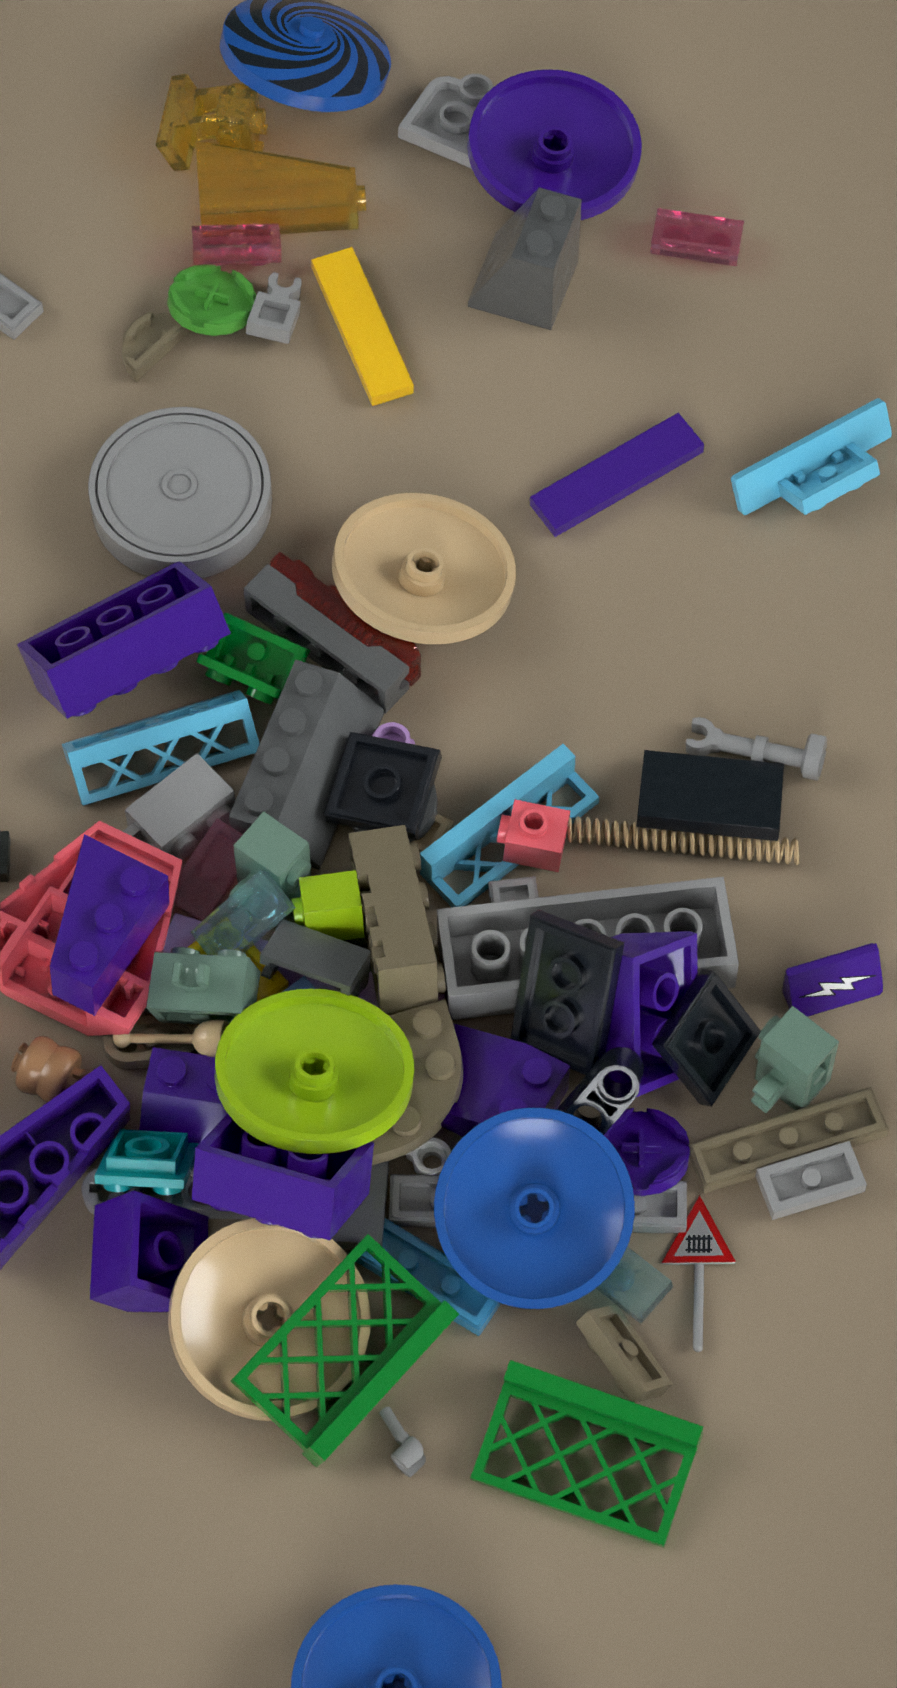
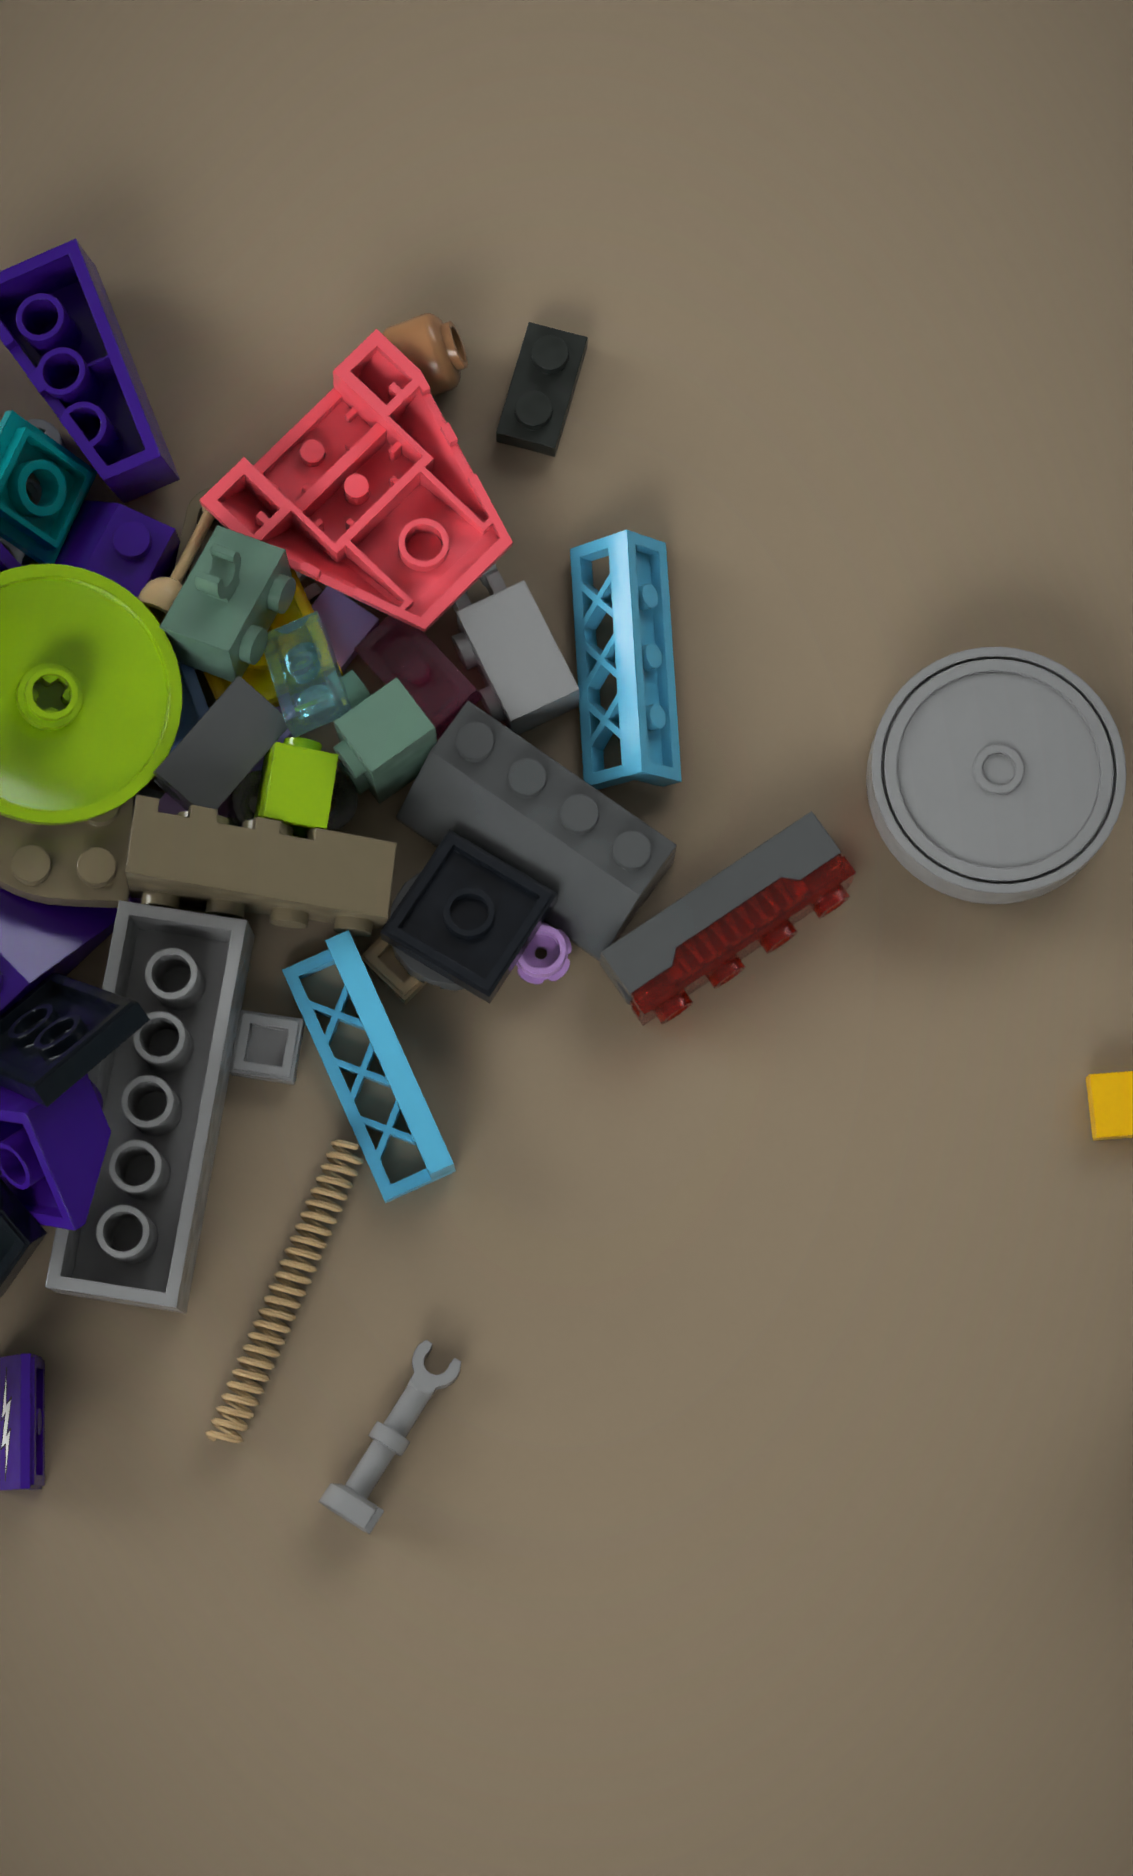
camera: 105 degrees right, 15 degrees up
(46, 1068) = (206, 416): medium nougat piece -> none
(104, 923) = (338, 491): dark purple wedge -> none
(124, 640) = (772, 636): dark purple brick -> none
(252, 658) = (713, 802): green bracket -> none
(423, 568) = (782, 1060): tan dish -> none
(534, 835) = (335, 1087): coral brick -> none
(616, 474) = (881, 1382): dark purple tile -> none
(710, 795) = (333, 1346): black tile -> none
(818, 465) = (805, 1675): medium azure bracket -> none

